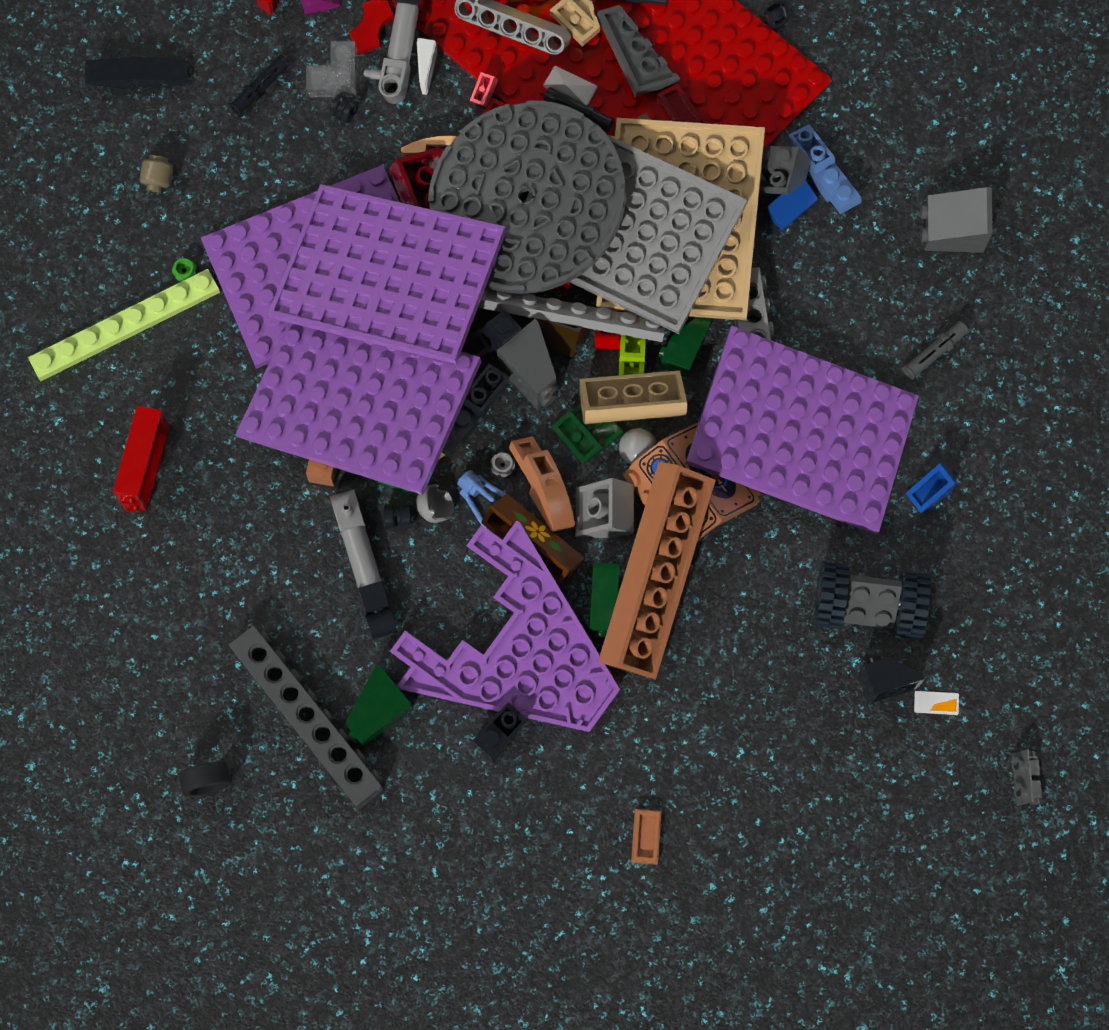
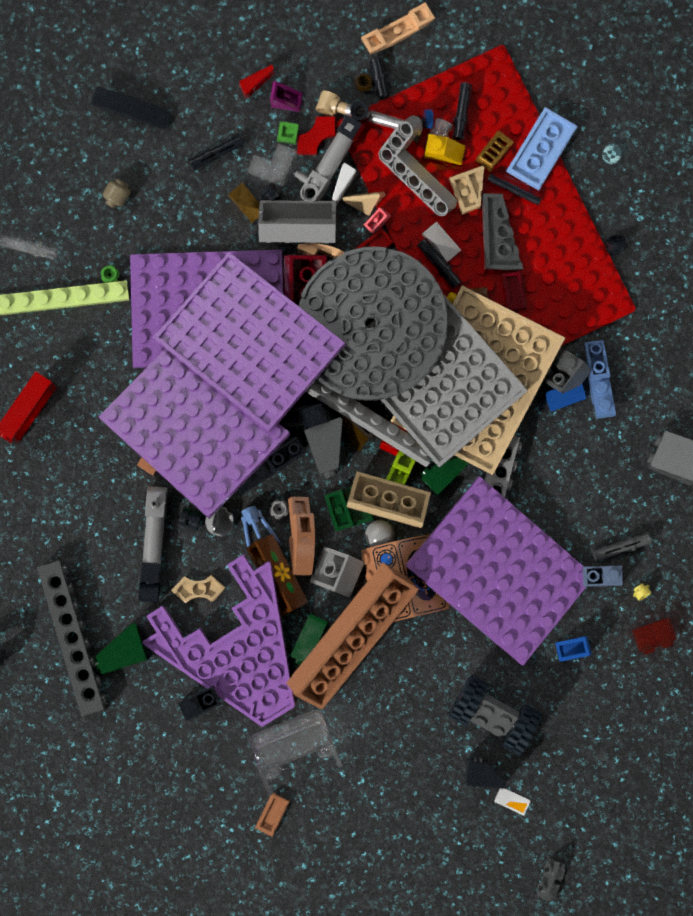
camera: 20 degrees right, 10 degrees up
(83, 273) = (36, 249): none -> clear pin
(319, 129) = (245, 202): none -> pearl gold slope
(336, 31) = (287, 132): none -> bright green plate
(389, 122) = (297, 221): none -> light grey piece
(430, 602) = (208, 588): none -> tan tile
(461, 74) = (364, 202): none -> tan slope
(637, 734) = (289, 742): none -> clear windscreen
(929, 389) = (602, 576): none -> sand blue slope
(982, 392) = (641, 592): none -> light yellow plate
(1020, 436) = (654, 635): none -> clear red brick

